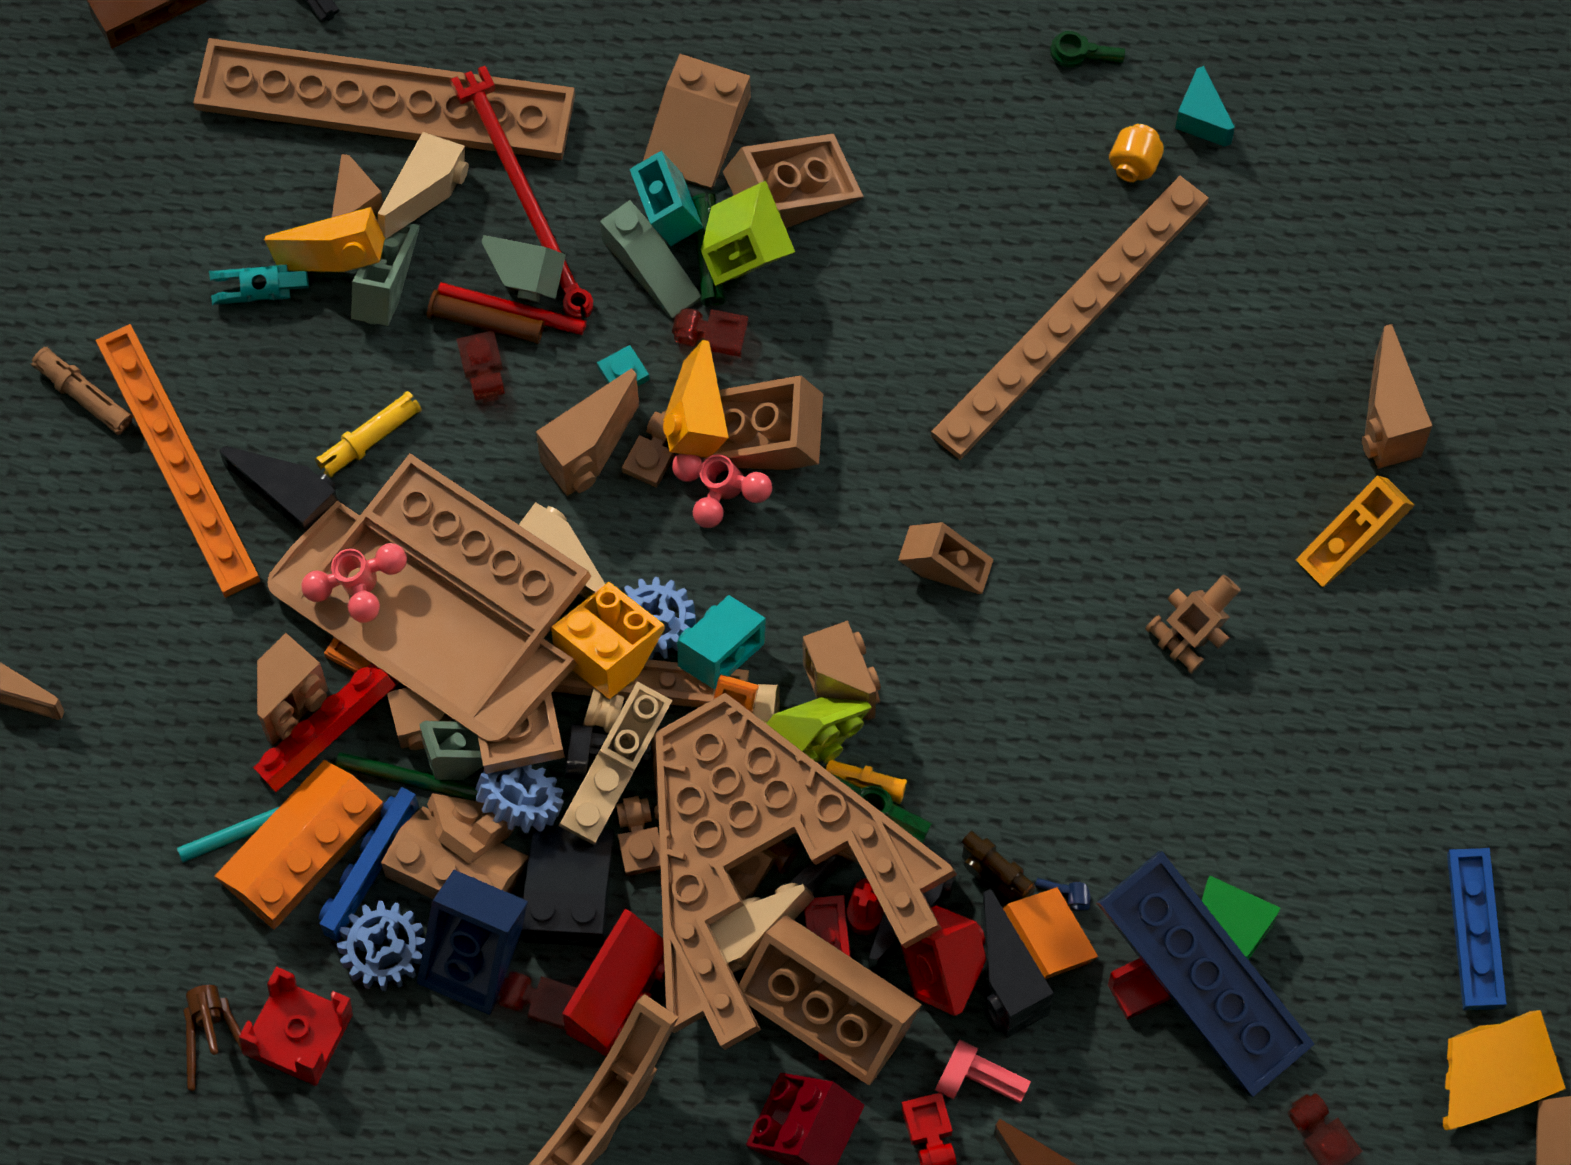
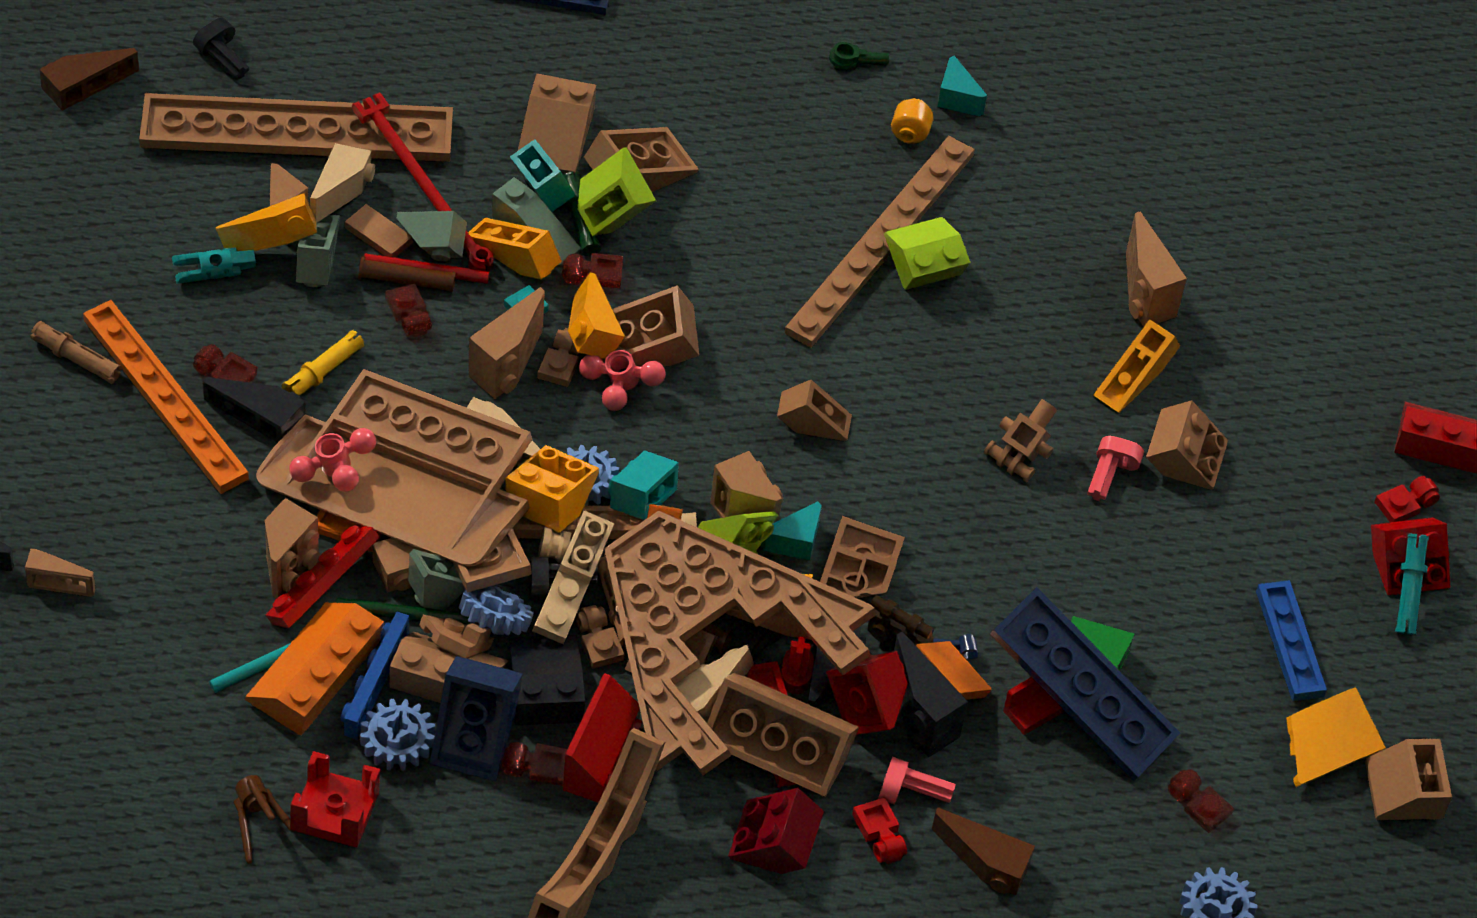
camera: 15 degrees left, 15 degrees down
(254, 434) = (232, 367): none -> clear red plate
(460, 252) = (378, 232): none -> medium nougat tile
(621, 290) = (517, 246): none -> light orange slope
(897, 721) = (795, 533): none -> teal slope
(962, 768) = (861, 559): none -> medium nougat slope
(1121, 342) = (927, 252): none -> lime slope
(1301, 648) = (1113, 453): none -> coral piece
(1397, 647) = (1187, 445): none -> medium nougat slope

